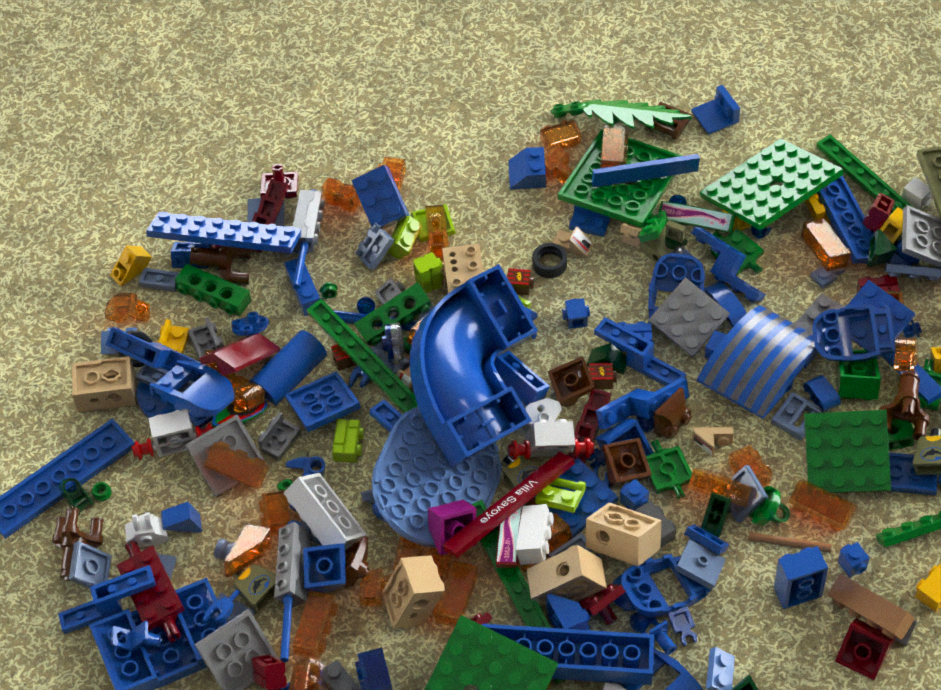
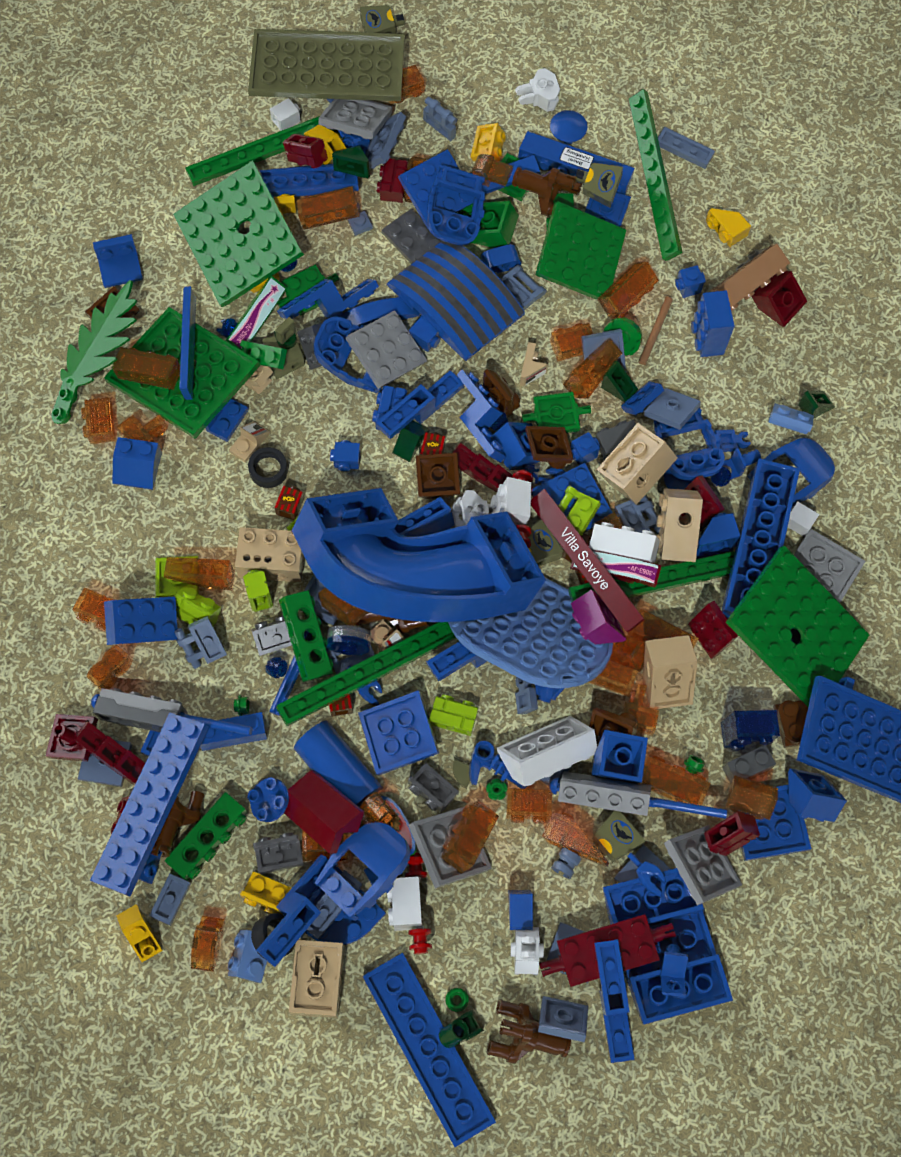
camera: 85 degrees left, 15 degrees up
(336, 641) = (694, 764): none -> green plate

